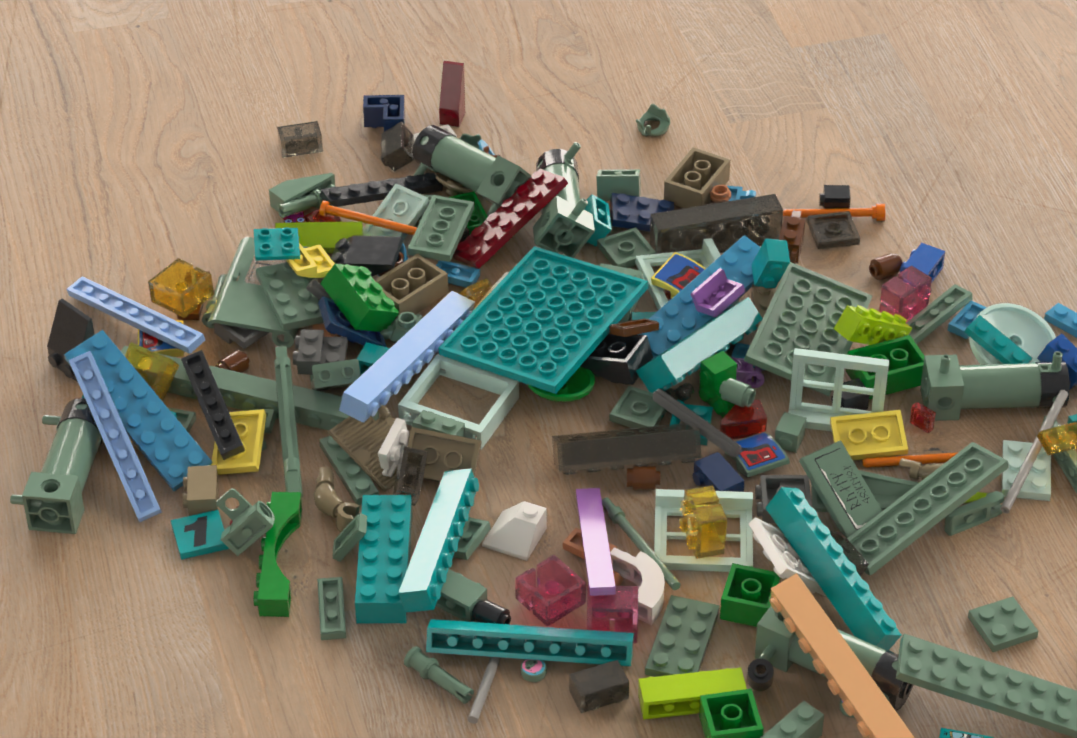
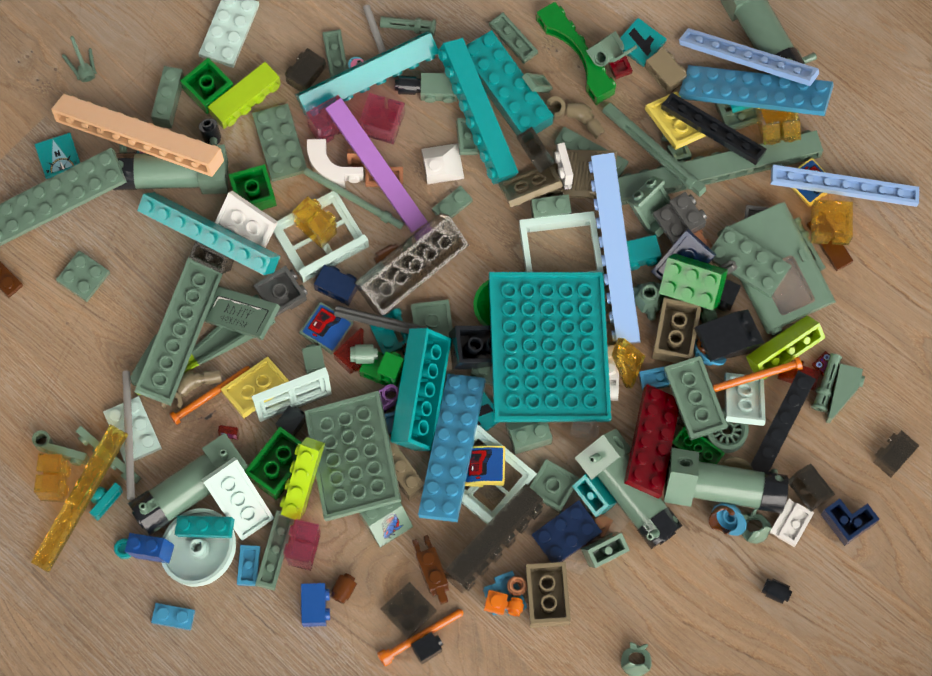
camera: 145 degrees right, 30 degrees up
(68, 331) = (854, 128): black slope -> none
(235, 361) = (740, 188): reddish brown brick -> none
(276, 244) = (789, 283): teal plate -> none
(312, 263) = (758, 293): light yellow slope -> none
(452, 94) = (809, 566): dark red slope -> none
(492, 109) = (776, 590): none -> black brick
(537, 493) = (453, 203): none -> sand green plate
(549, 692) = (335, 52): none -> sand green tile
(634, 327) = (475, 370): reddish brown tile -> none
(716, 294) = (436, 441): medium lavender bracket -> none
(743, 190) = (497, 603): none -> orange plate
(770, 263) = (410, 483): teal brick -> none
(950, 347) = (238, 498): none -> light aqua plate

